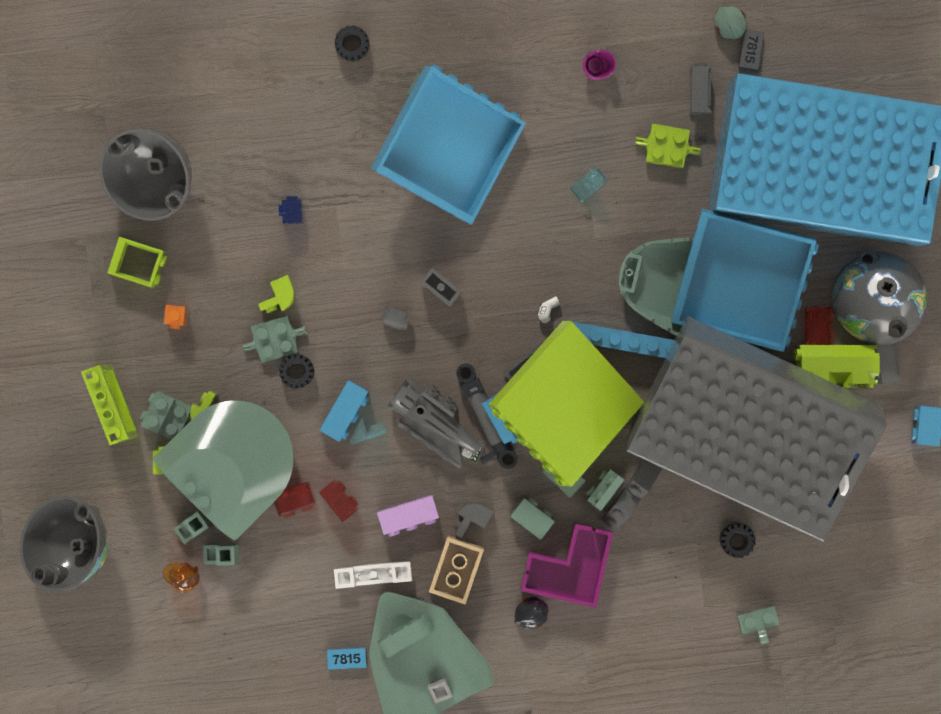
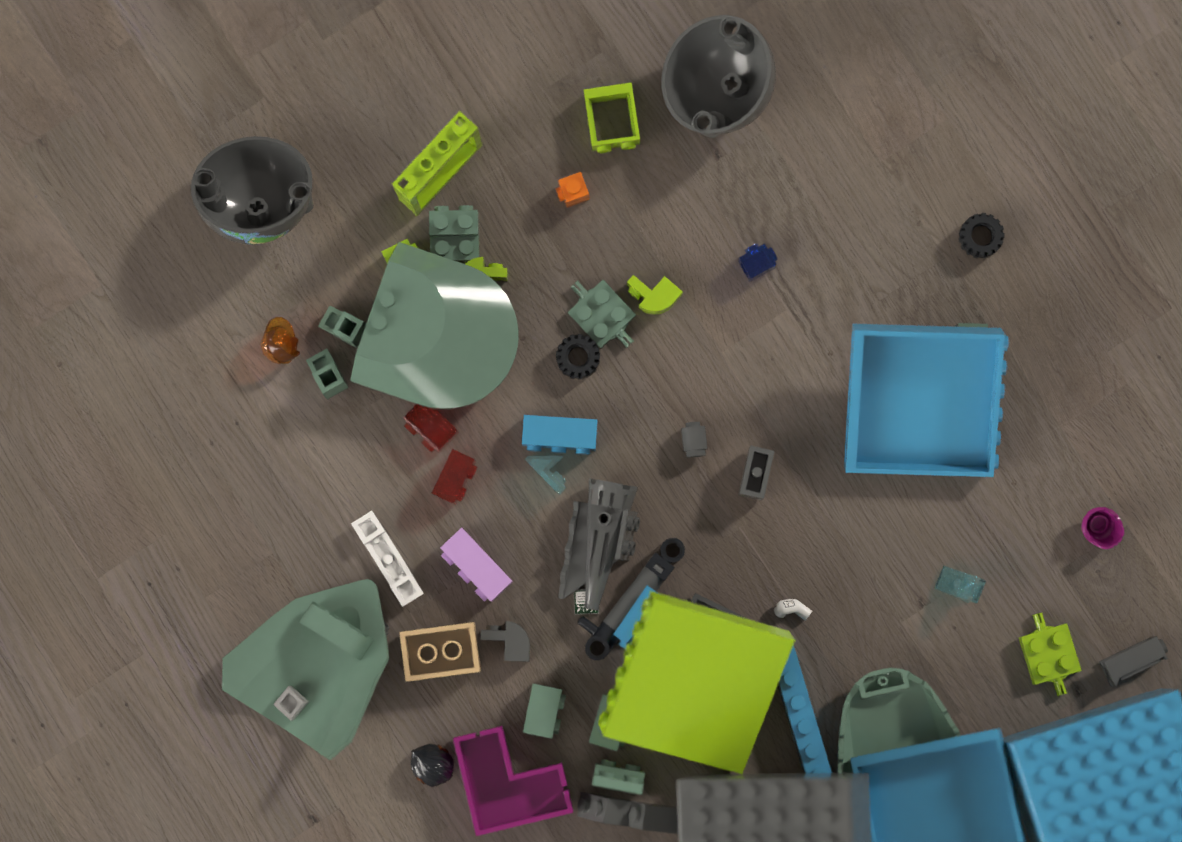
camera: 70 degrees right, 5 degrees down
(346, 658) = (276, 576): dark azure tile -> none

